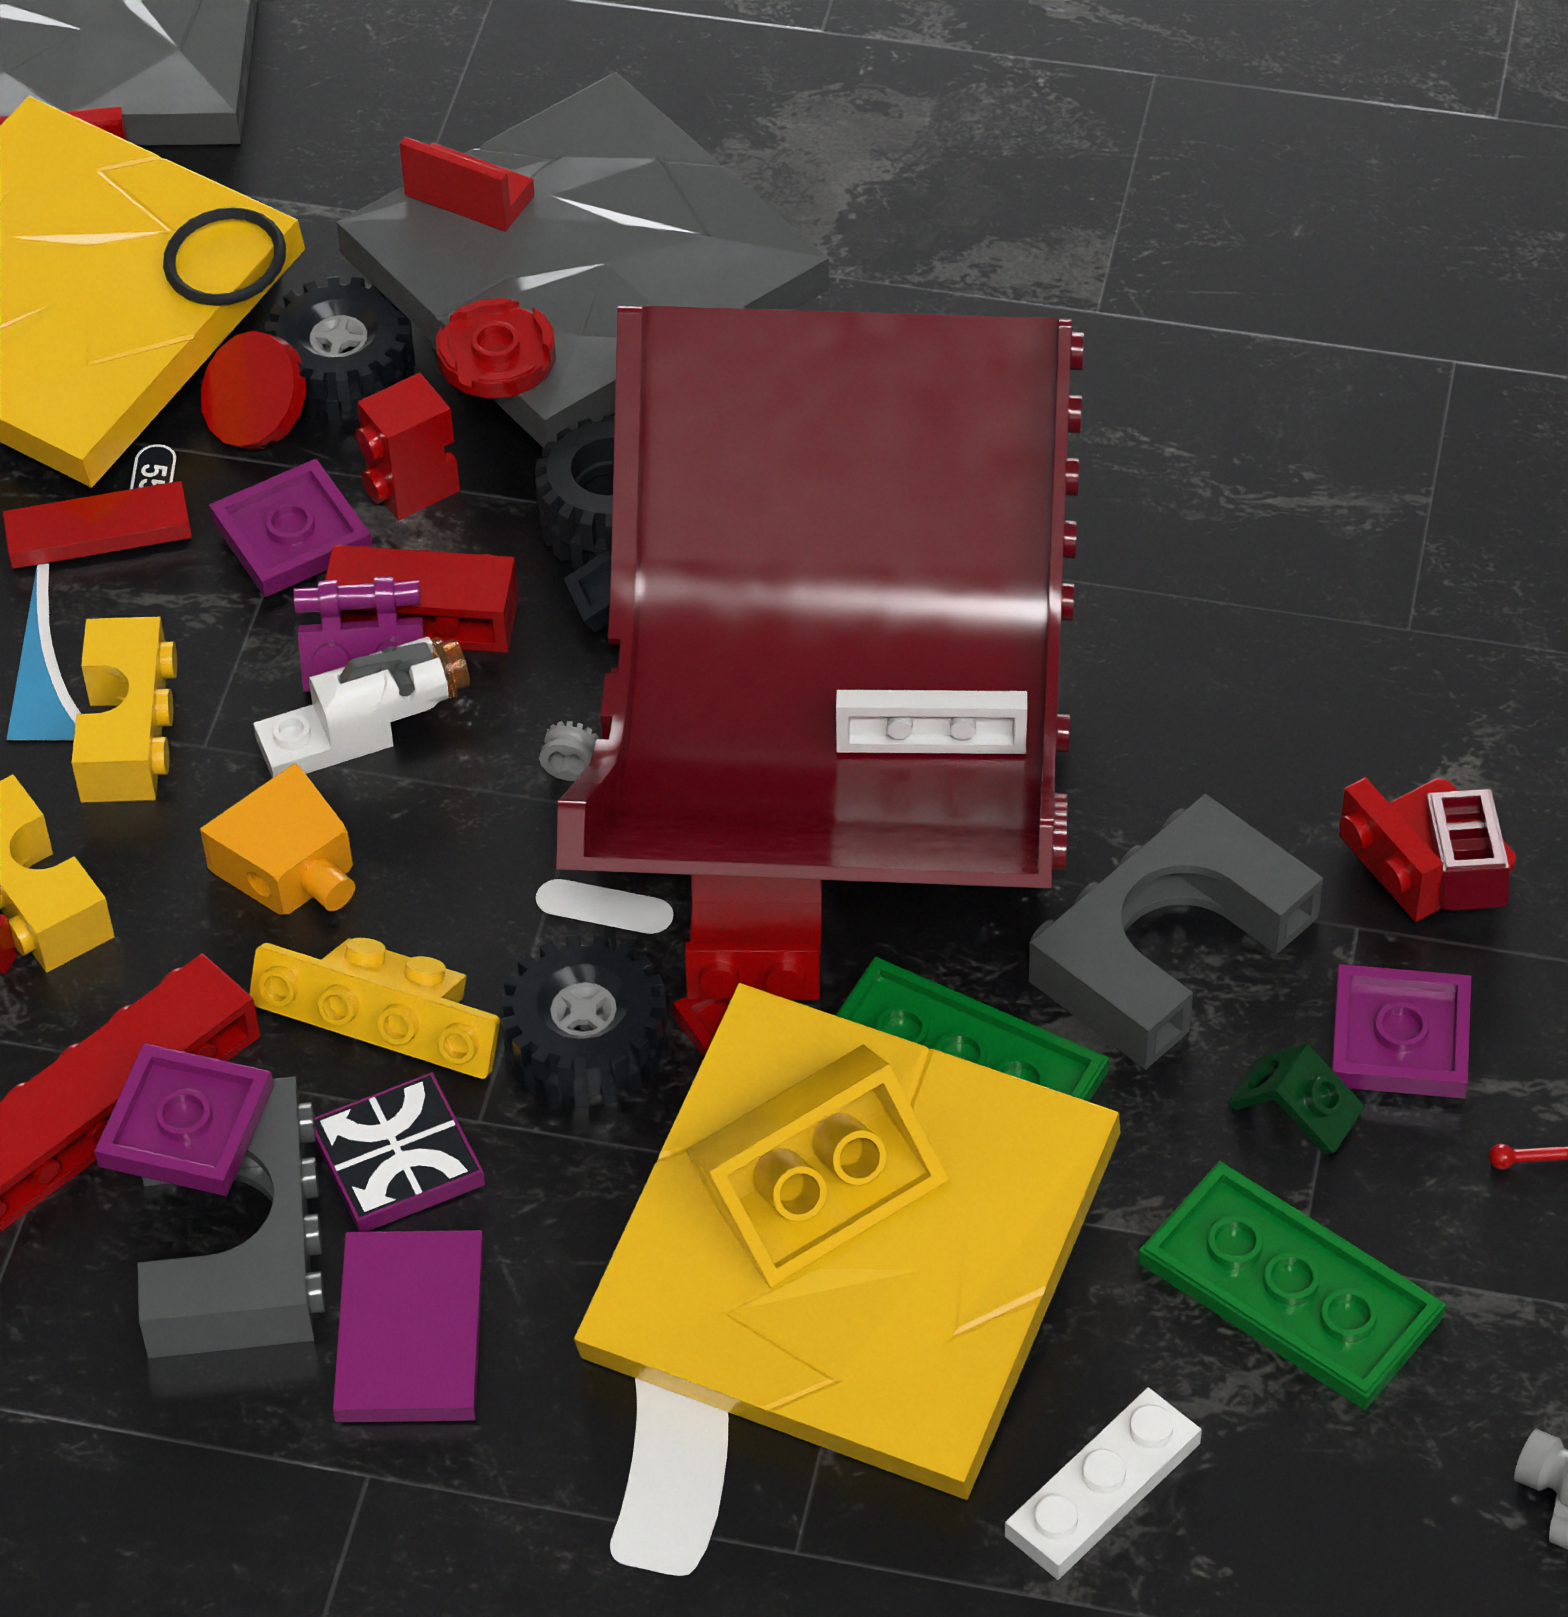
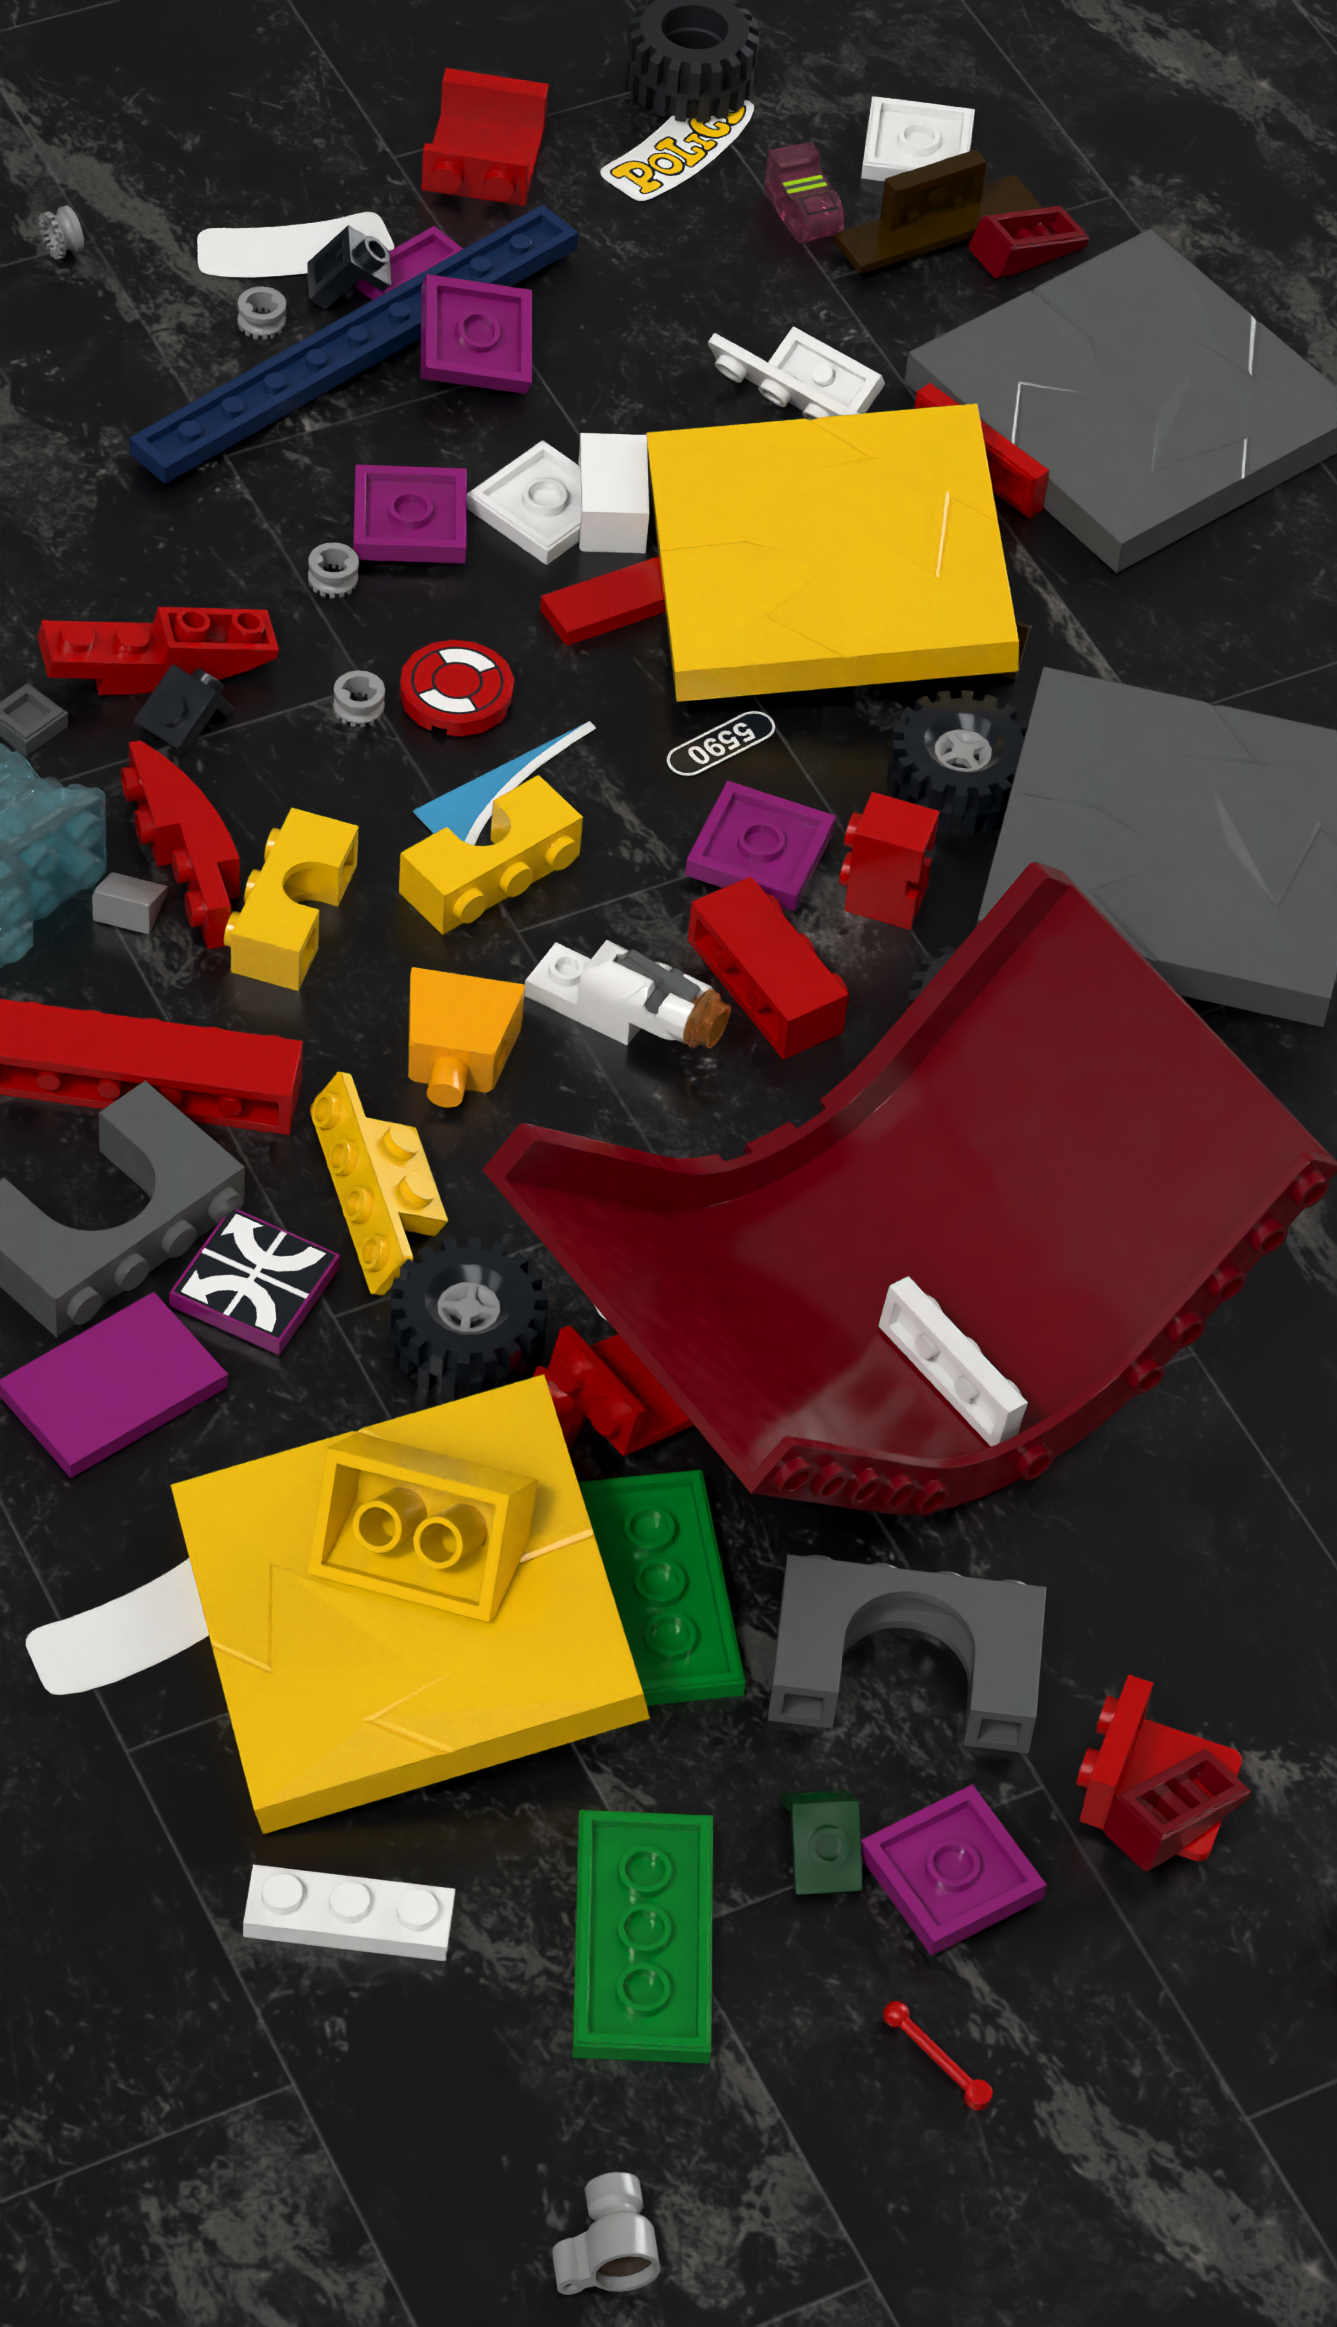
camera: 45 degrees right, 0 degrees up
(96, 524) = (652, 730): red tile -> none
(184, 1119) = (137, 1120): magenta plate -> none
(236, 296) = (938, 661): black tyre -> none
(253, 390) = (856, 732): red tile -> none
(337, 642) = (666, 937): magenta plate -> none
(464, 184) = (1155, 717): red panel -> none
(495, 348) = (1004, 835): red tile -> none
(567, 750) = (710, 1143): light grey bush -> none

